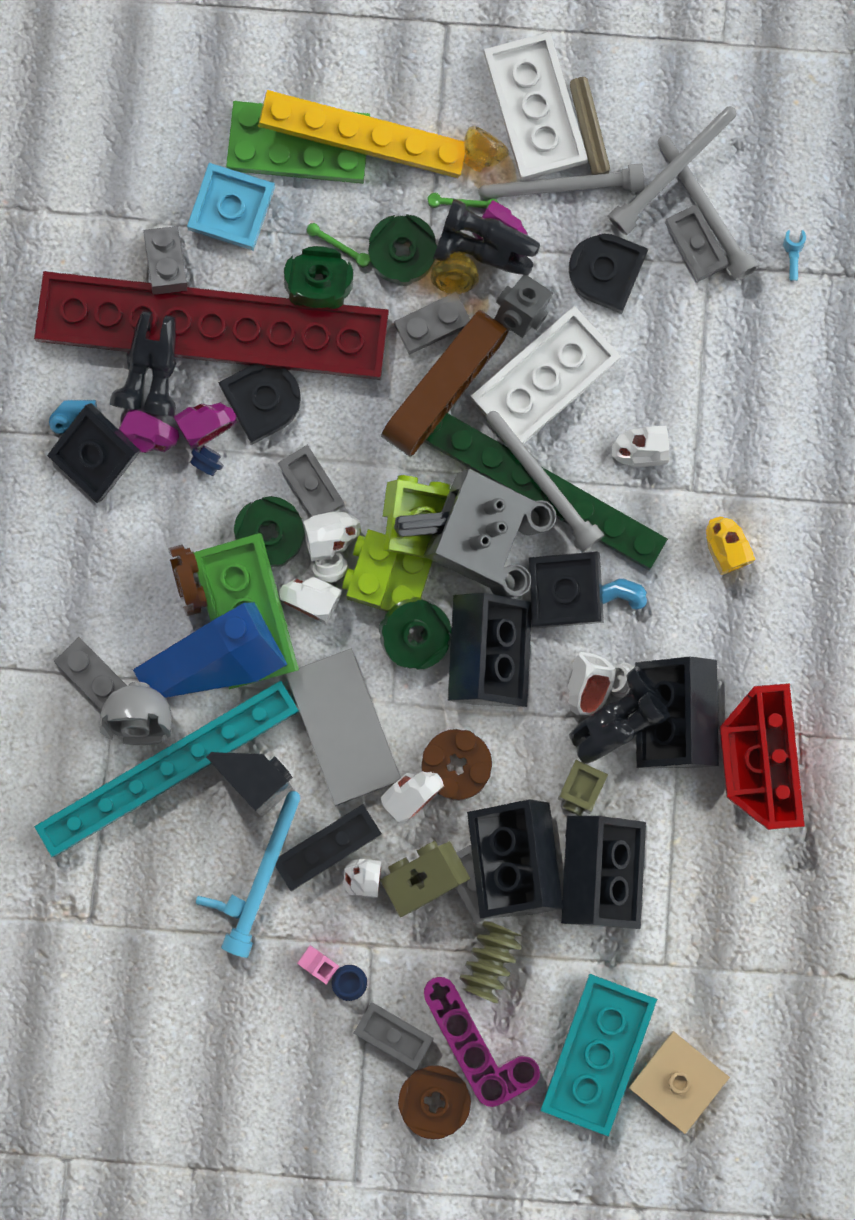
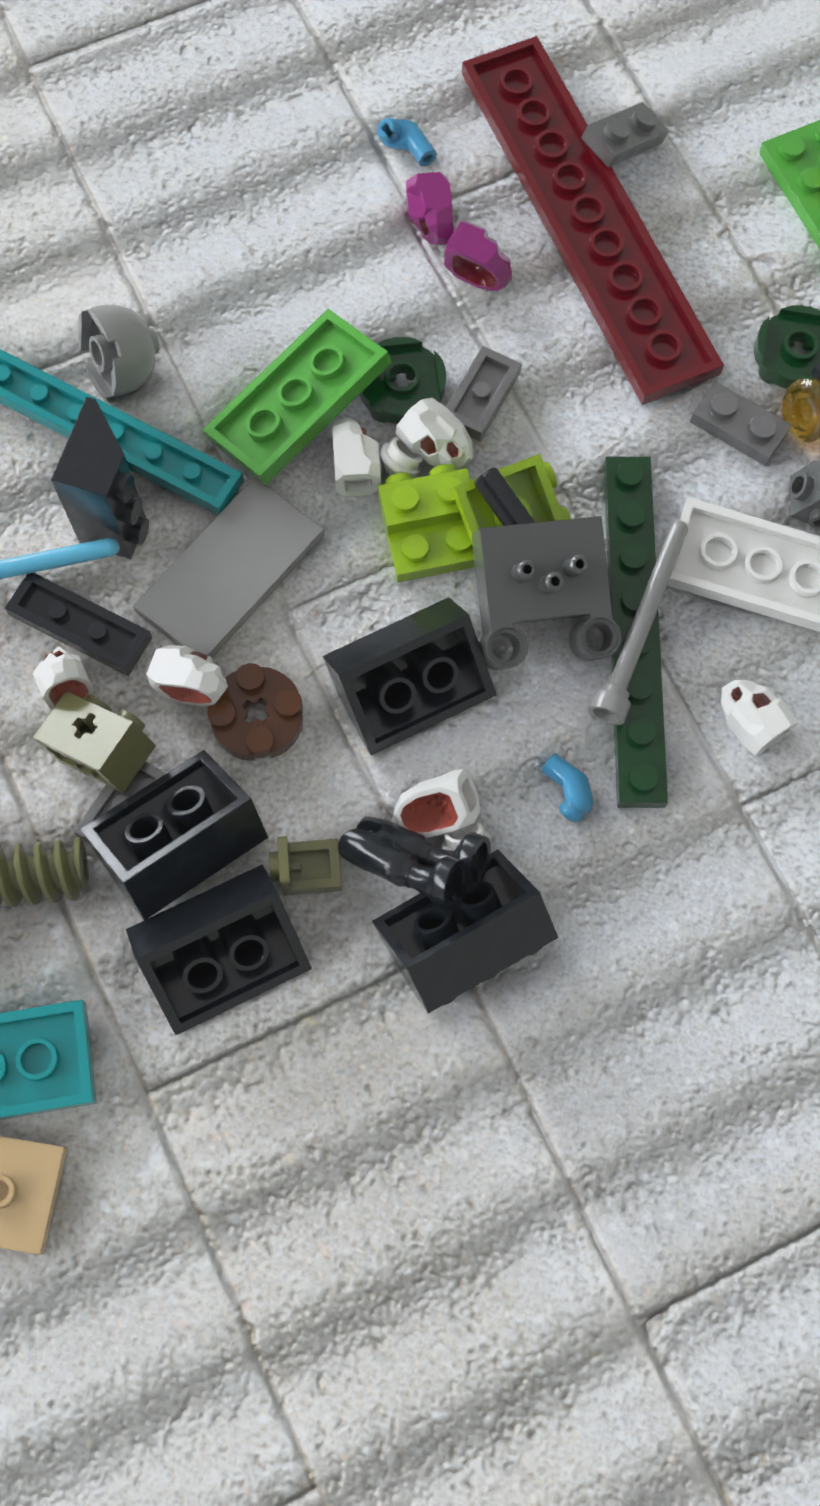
camera: 60 degrees right, 10 degrees down
(89, 672) = (146, 286): flat silver plate -> none
(93, 453) = (378, 171): black plate -> none
(153, 355) = (517, 161): black piece -> none
(183, 569) = (292, 314): reddish brown plate -> none
(206, 460) = (440, 280): dark blue plate -> none
(218, 655) = (233, 389): blue wedge -> none
(231, 206) = (725, 167): medium azure plate -> none
(262, 399) = (541, 305): black tile -> none
(313, 293) = (707, 280): dark green plate -> none
(361, 259) = (756, 258): bright green hinge -> none
(396, 627) = (369, 556): dark green plate -> none
(444, 383) = (682, 458): reddish brown beam -> none
(566, 590) = (533, 720): black plate -> none
(728, 545) = (705, 878): yellow rock -> none
(763, 758) = (469, 1061): red wedge -> none

